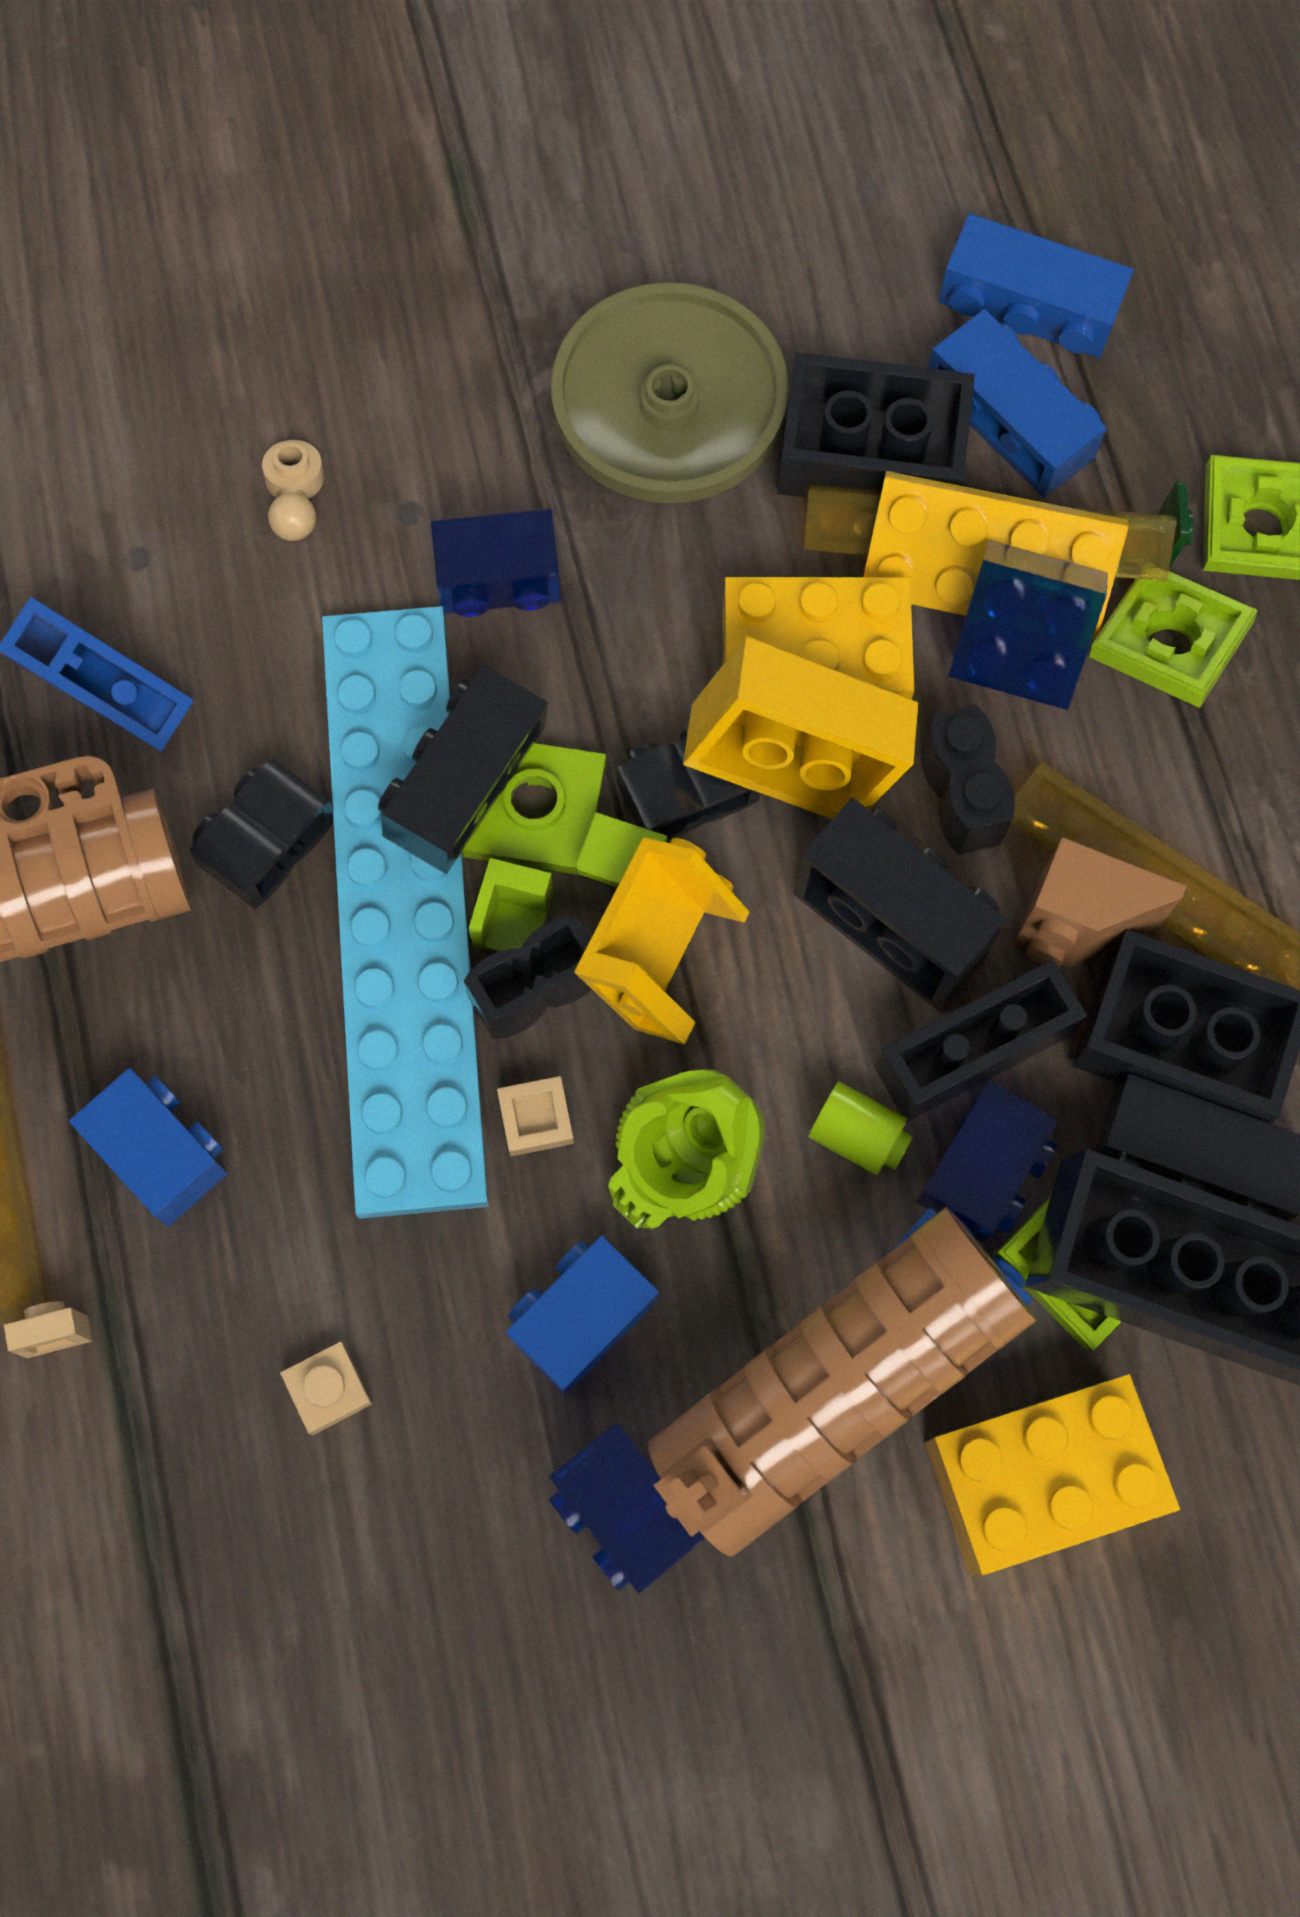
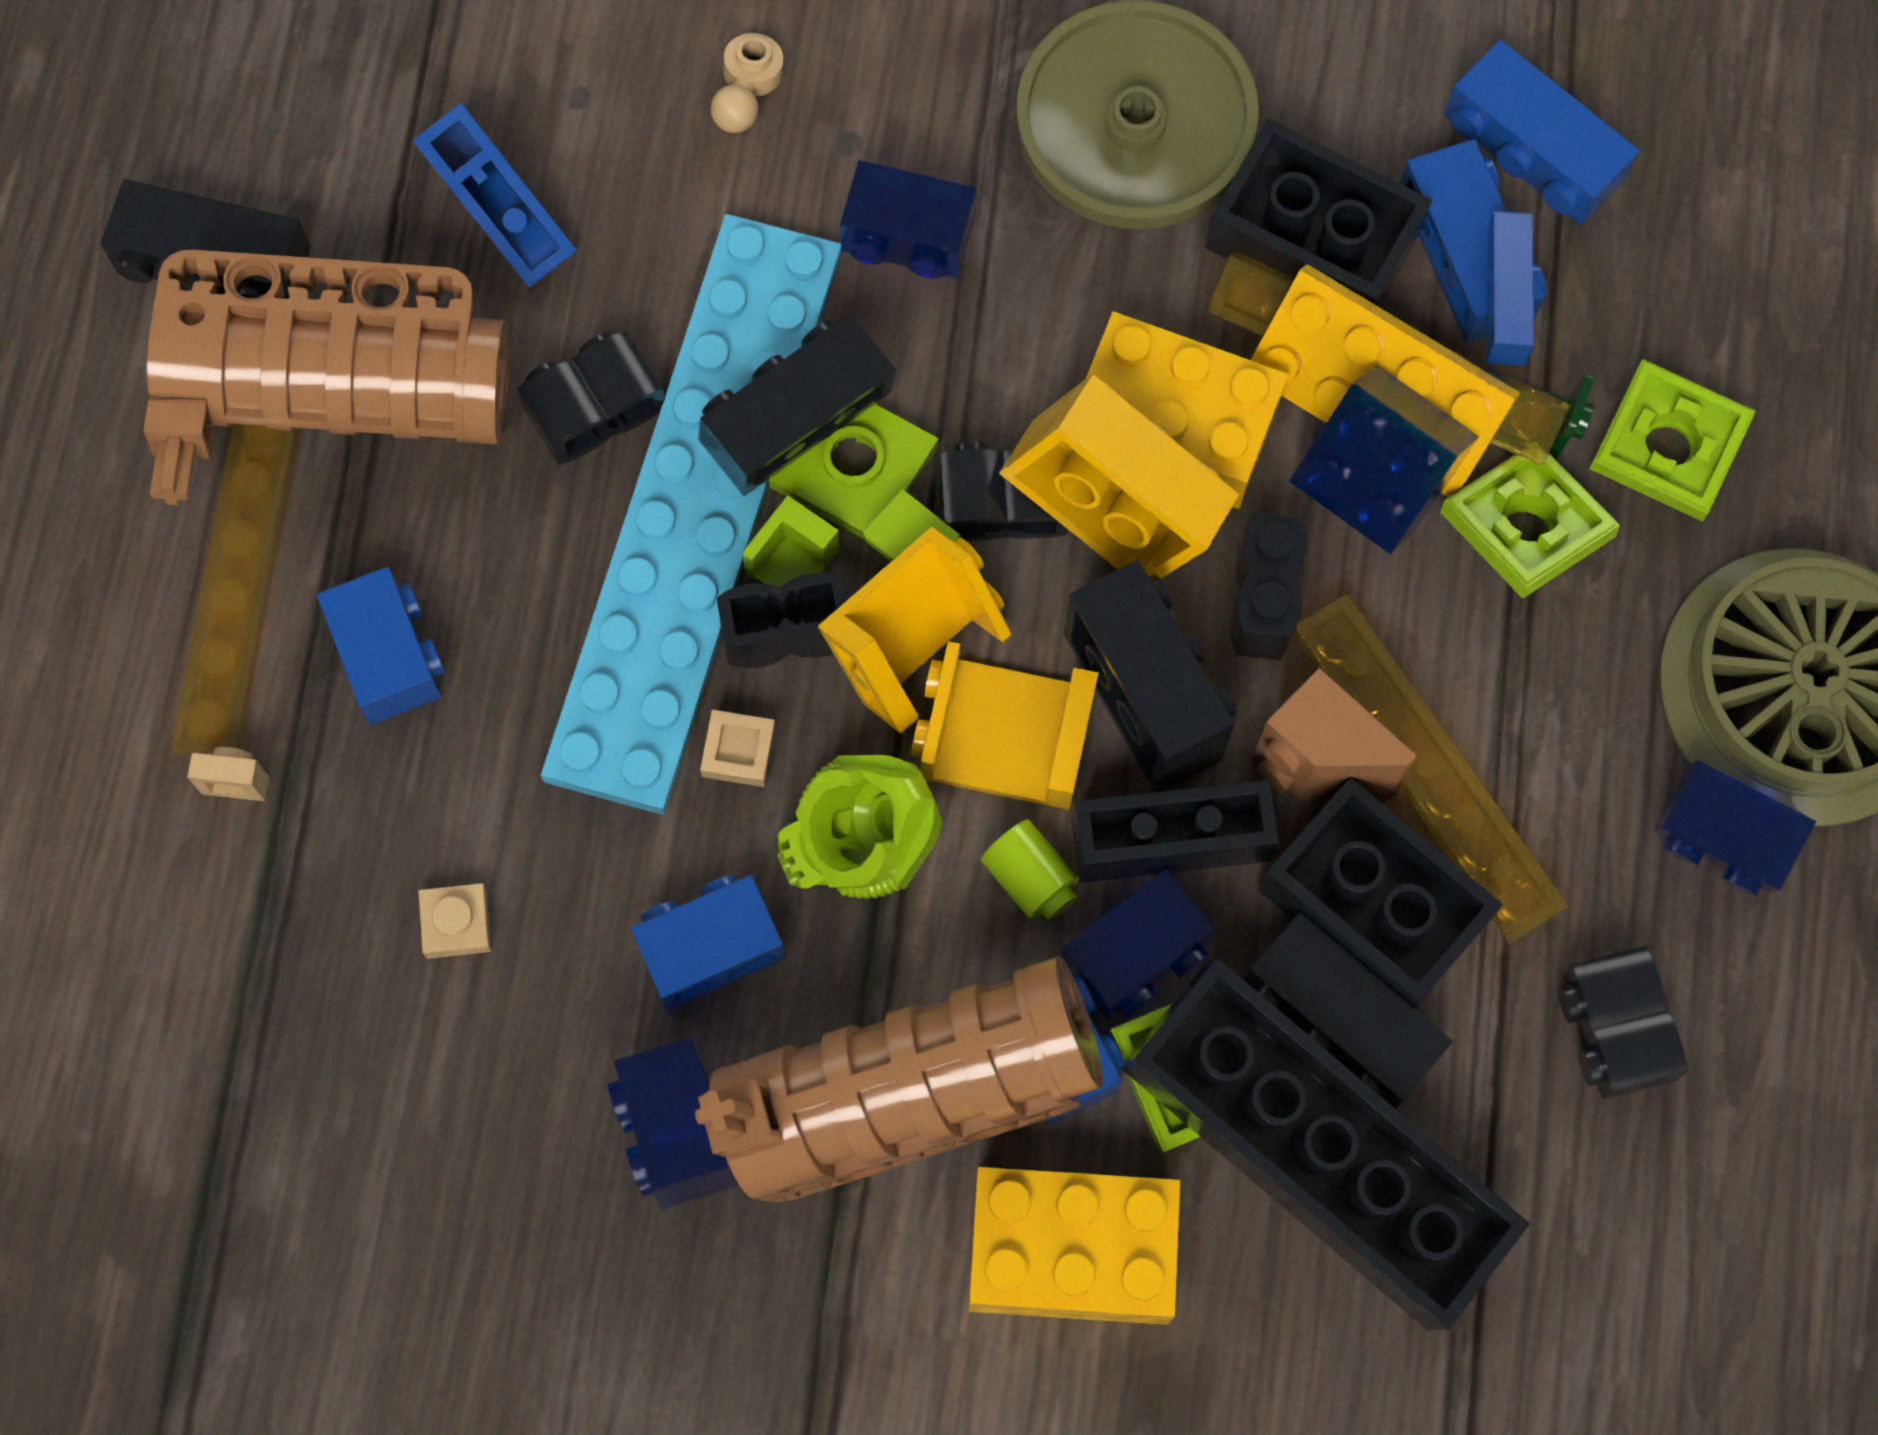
camera: 20 degrees right, 0 degrees up
(781, 1003) = (1004, 730): none -> yellow panel
(1077, 431) = (1510, 289): none -> blue piece

